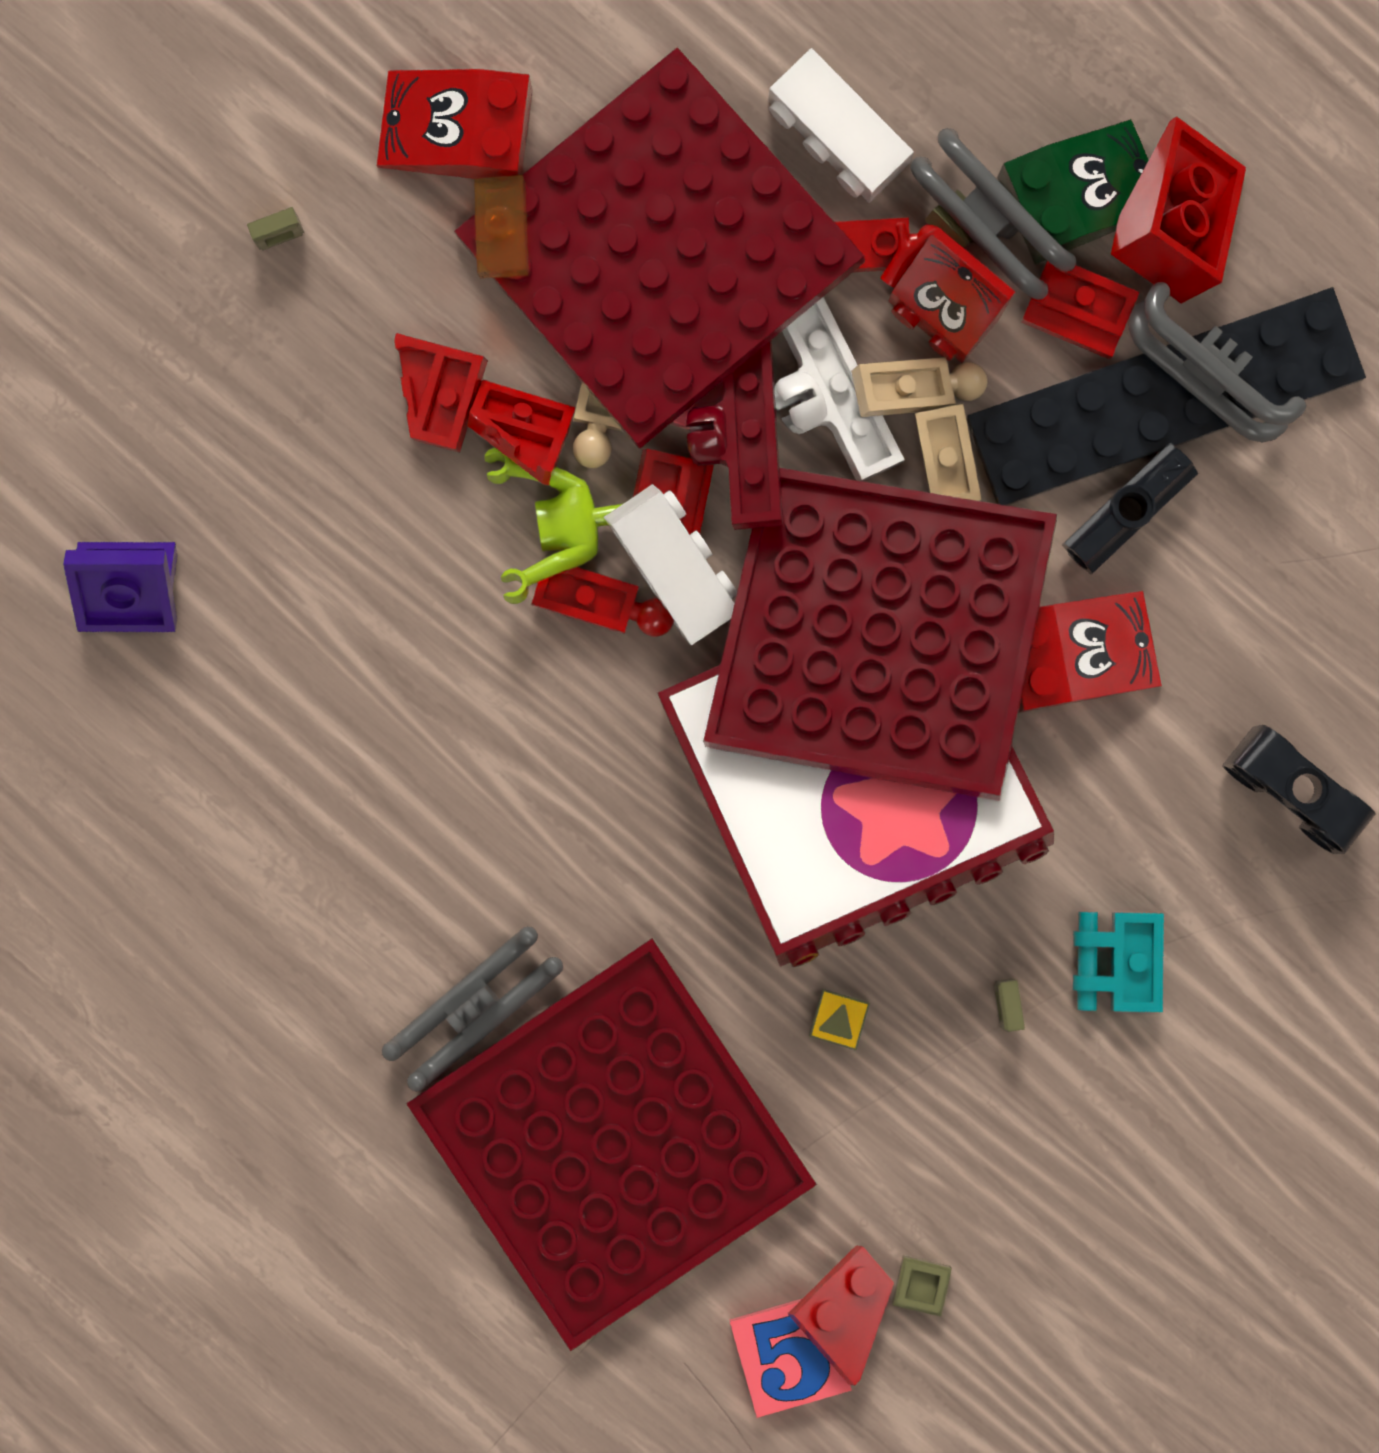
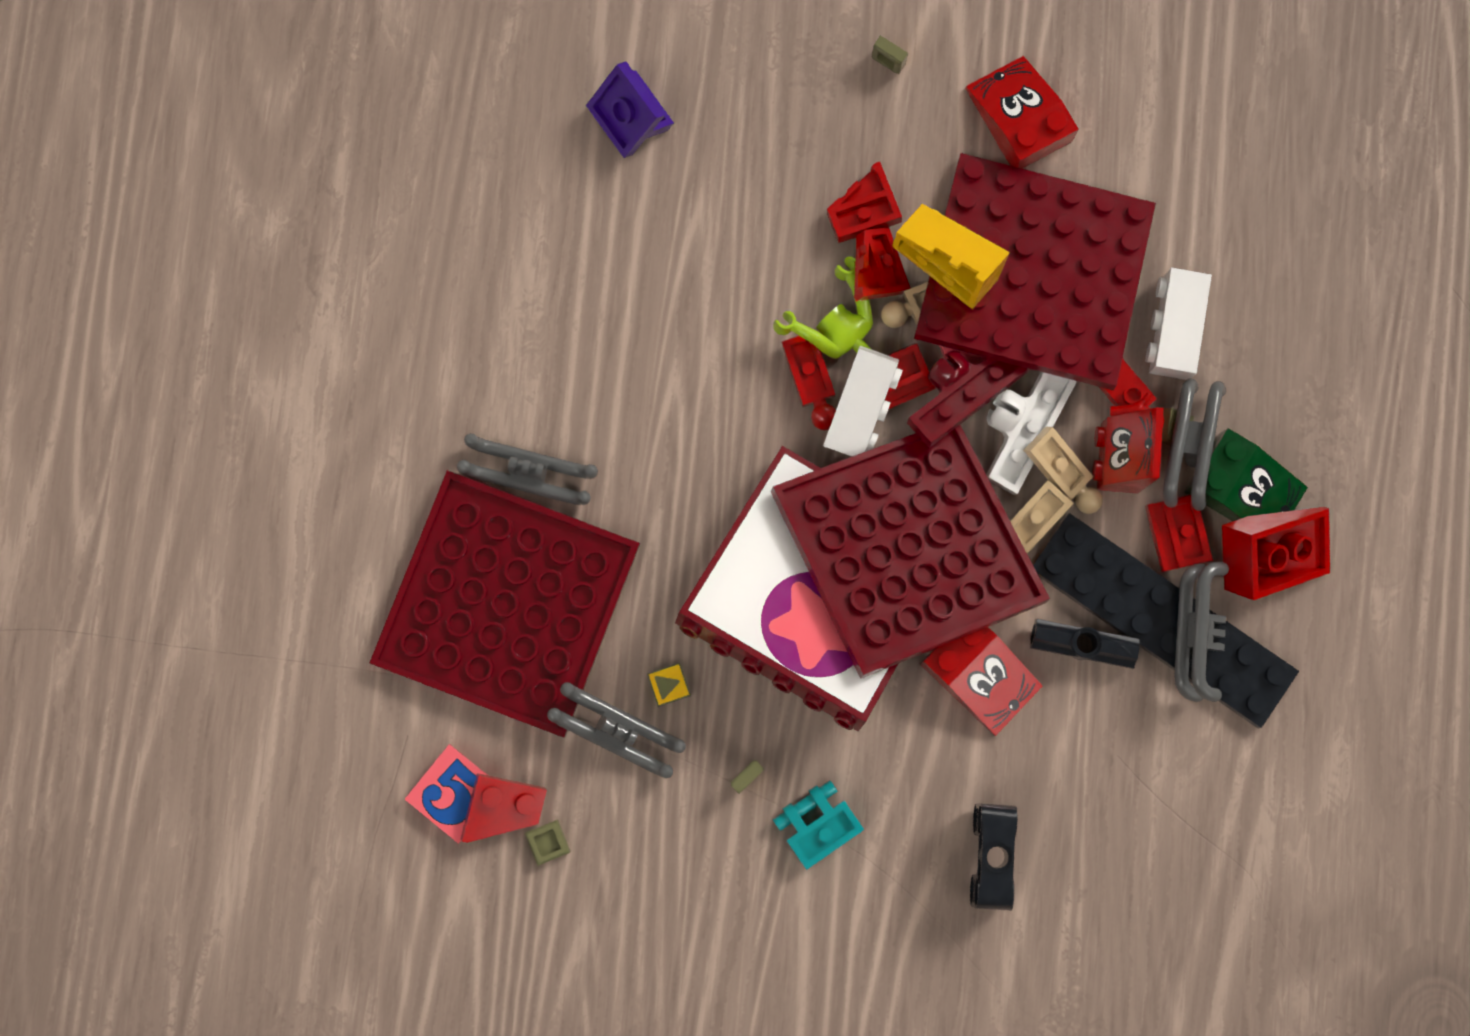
camera: 55 degrees right, 5 degrees down
(501, 226) = (982, 174): clear orange plate -> none
(574, 336) = (951, 254): none -> yellow wedge
(852, 1118) = (616, 730): none -> dark grey piece

